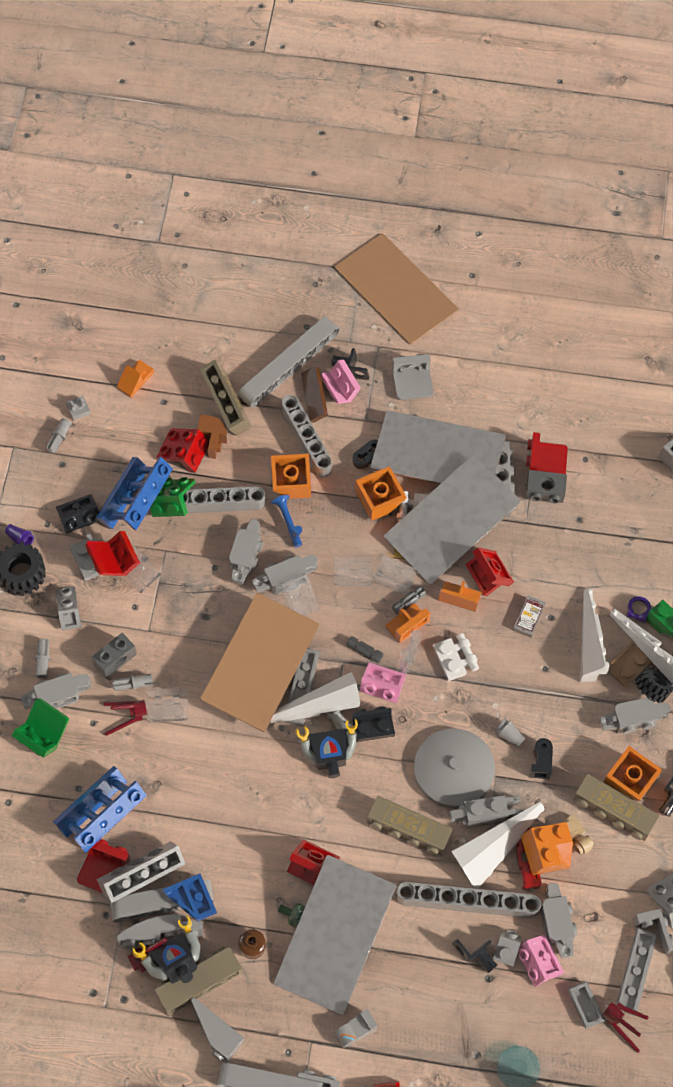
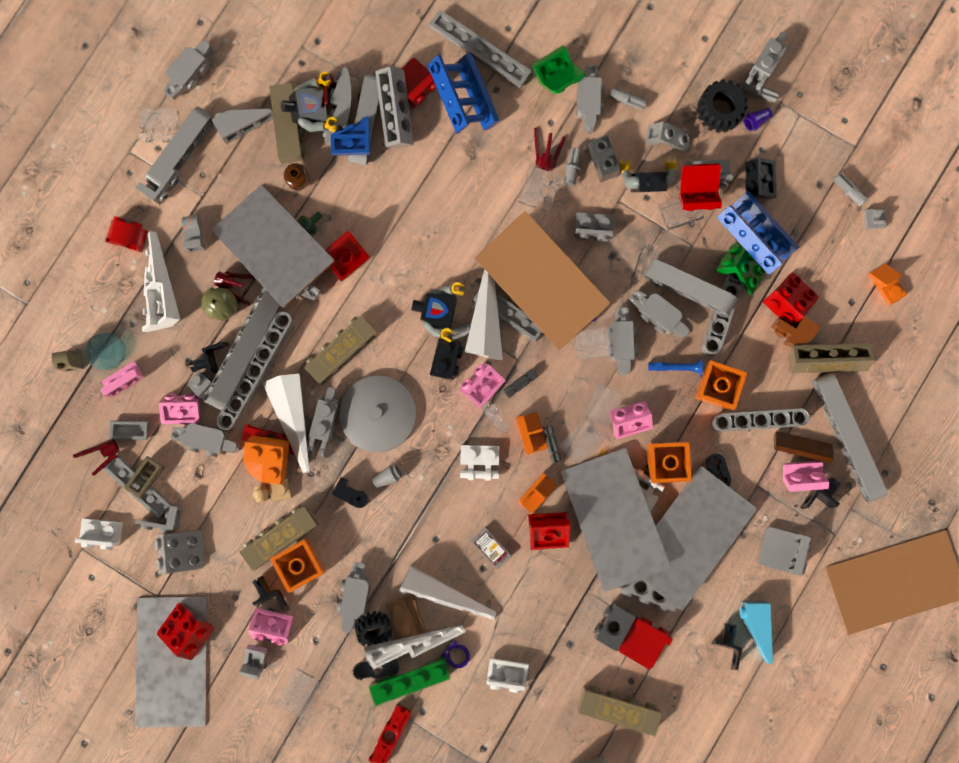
camera: 120 degrees right, 20 degrees up
(42, 819) = (480, 49): none -> light grey plate
(121, 605) = (649, 180): none -> torso
(184, 642) = (594, 226): none -> light grey bracket
(210, 533) = (690, 287): none -> light grey beam
(354, 540) = (631, 419): none -> bright pink bracket
(390, 973) = (225, 280): none -> dark red plant
(416, 973) = (225, 305): none -> olive piece
(439, 1034) = (160, 300): none -> white wedge
(453, 919) = (241, 350): none -> light grey beam
(483, 377) = (757, 619): none -> medium azure slope
(512, 394) = (728, 642): none -> black bracket
(539, 1033) = (121, 380): none -> bright pink bracket
(615, 457) = (619, 711): none -> dark tan brick
(616, 955) = (139, 473): none -> dark tan slope
(633, 557) = (507, 675): none -> white bracket

